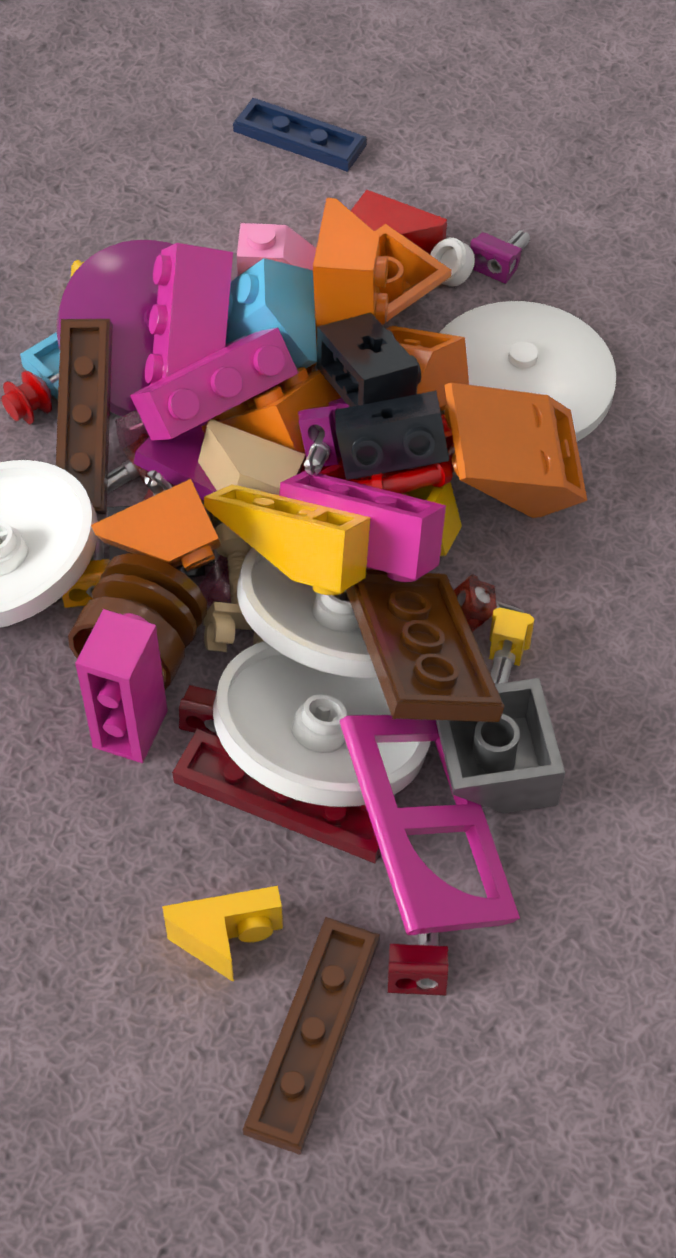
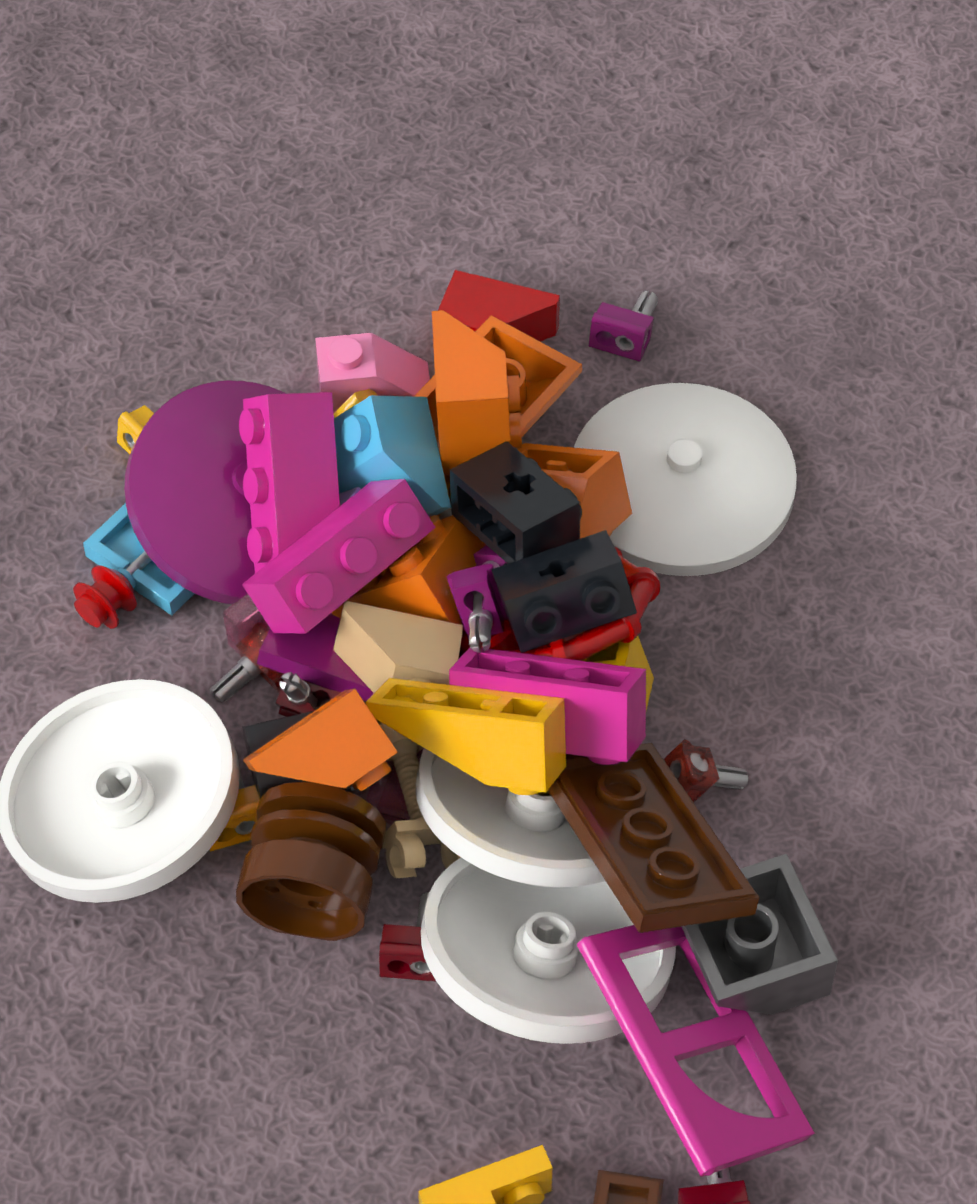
camera: 10 degrees left, 0 degrees up
(85, 405) = (183, 598): reddish brown tile -> none
(122, 685) = (318, 941): dark pink brick -> none
(213, 773) = (435, 1023): dark red plate -> none
(300, 134) = (351, 201): dark blue tile -> none
(457, 257) = (576, 340): white tile -> none
(509, 637) = (737, 803): yellow piece -> none
(515, 447) = (704, 579): orange slope -> none

